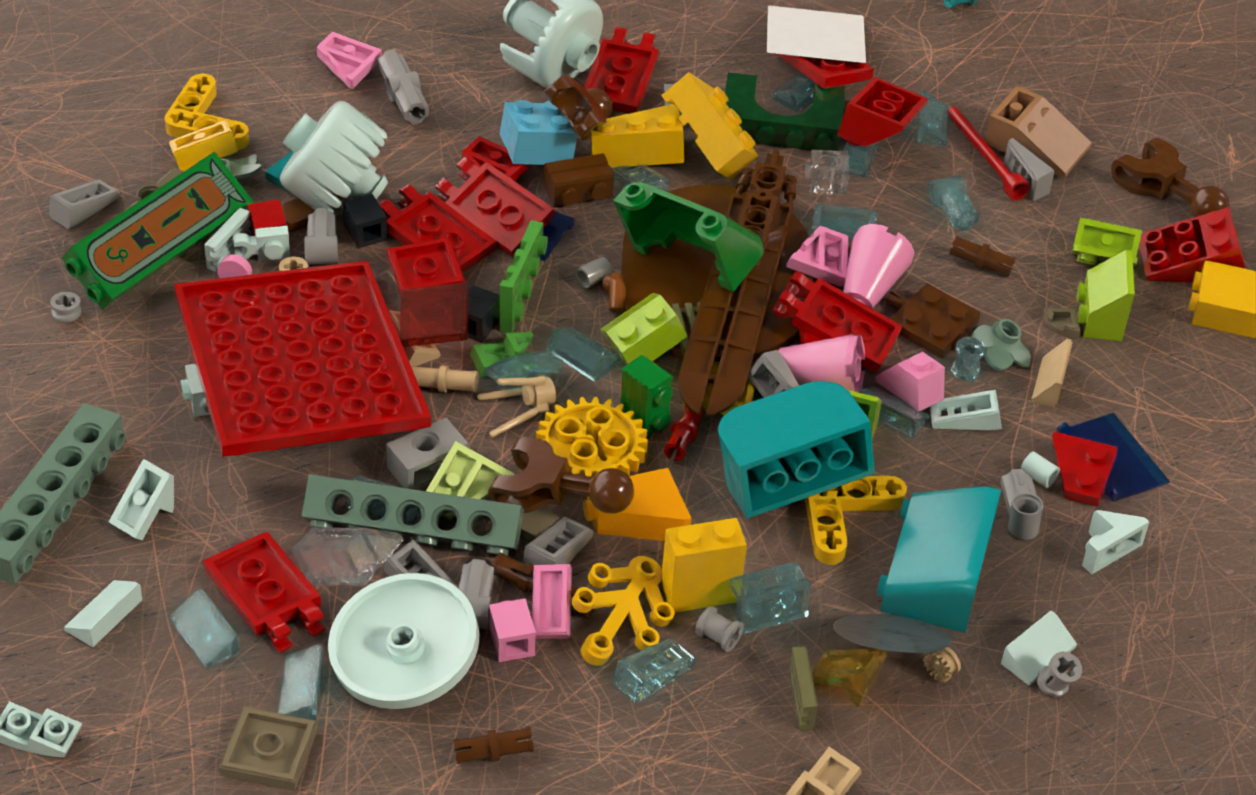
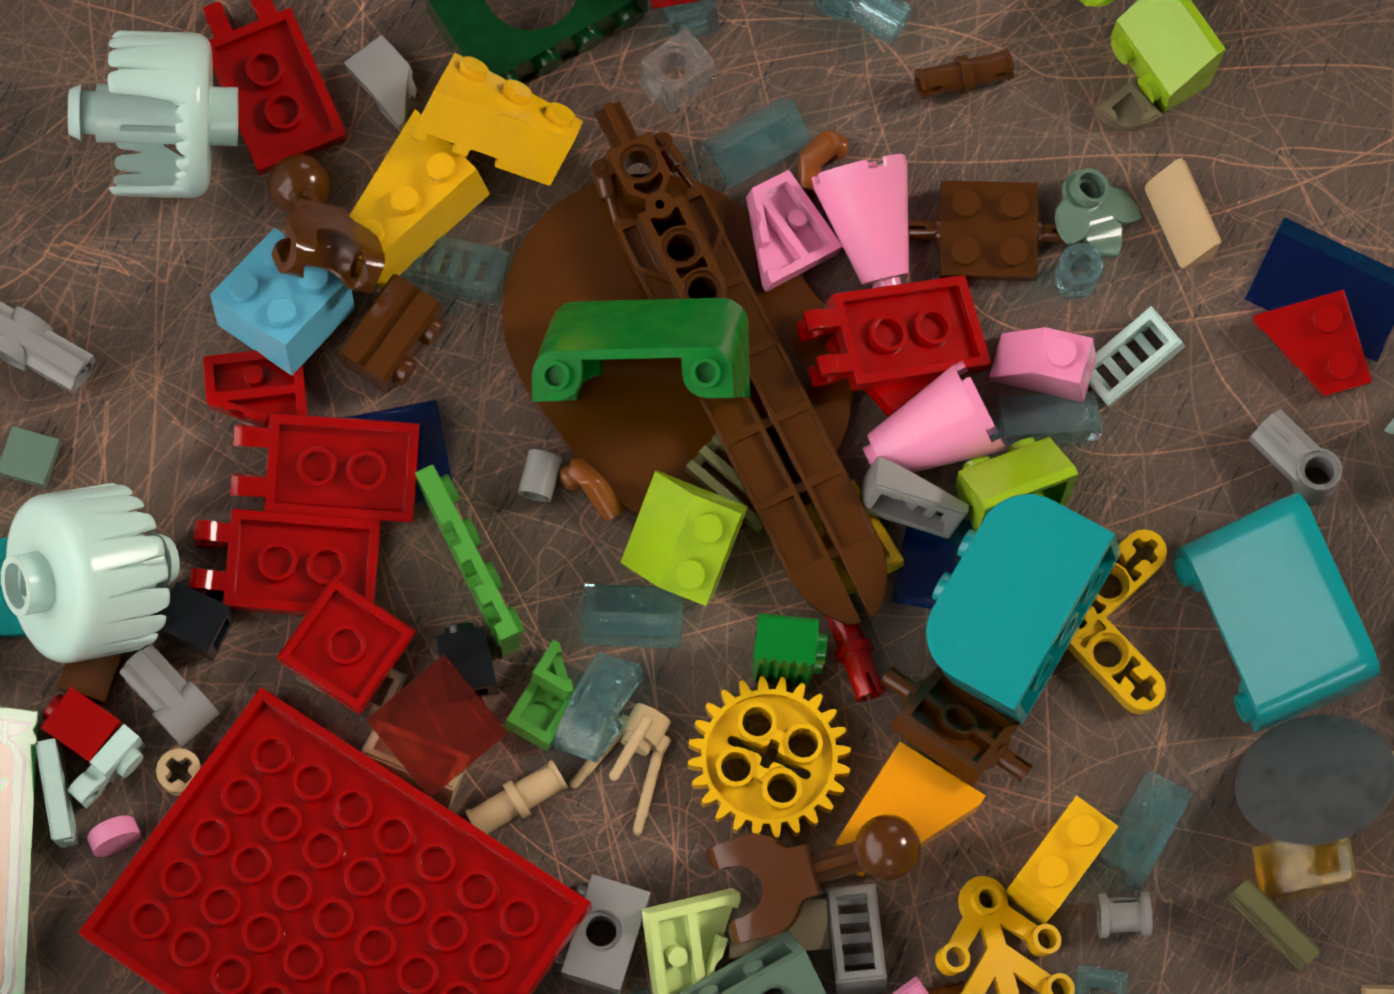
camera: 40 degrees left, 30 degrees up
(703, 481) = (954, 727): none -> reddish brown plate
(1040, 469) = (1276, 384): light aqua hinge -> none

